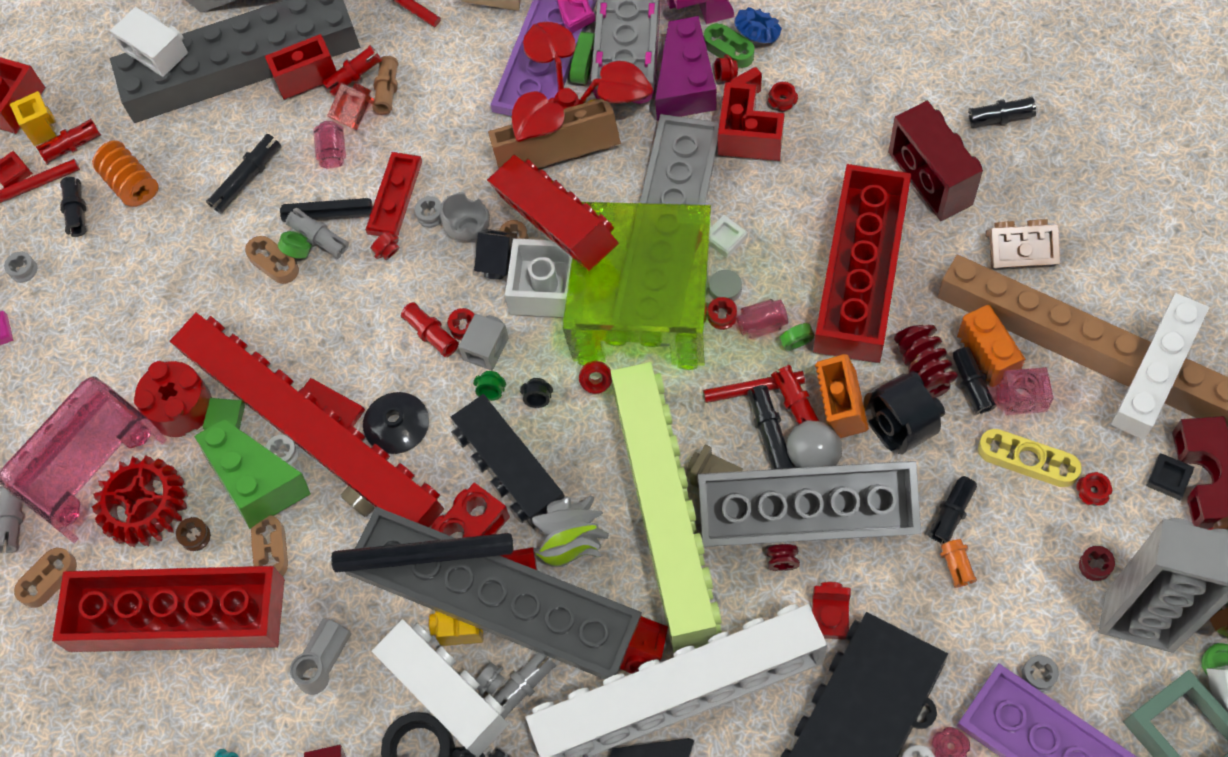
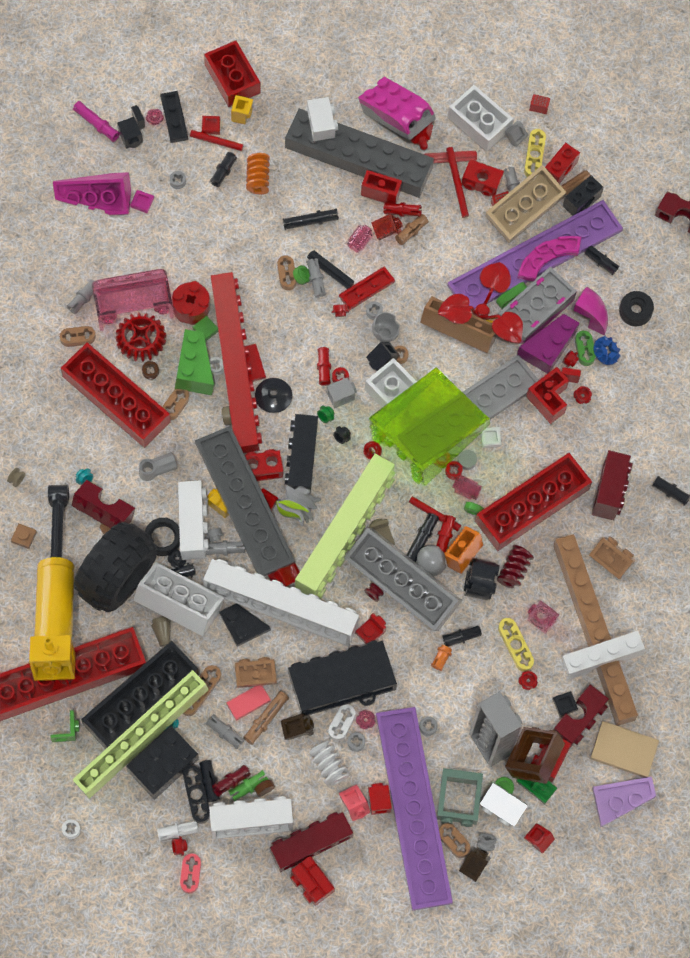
camera: 30 degrees right, 5 degrees up
(68, 141) = (248, 132): red pin -> none
(422, 552) = (231, 461): black axle -> none
(554, 211) = (419, 360): red brick -> none
(973, 381) = (527, 593): black axle -> none
(990, 344) = (549, 584): orange brick -> none

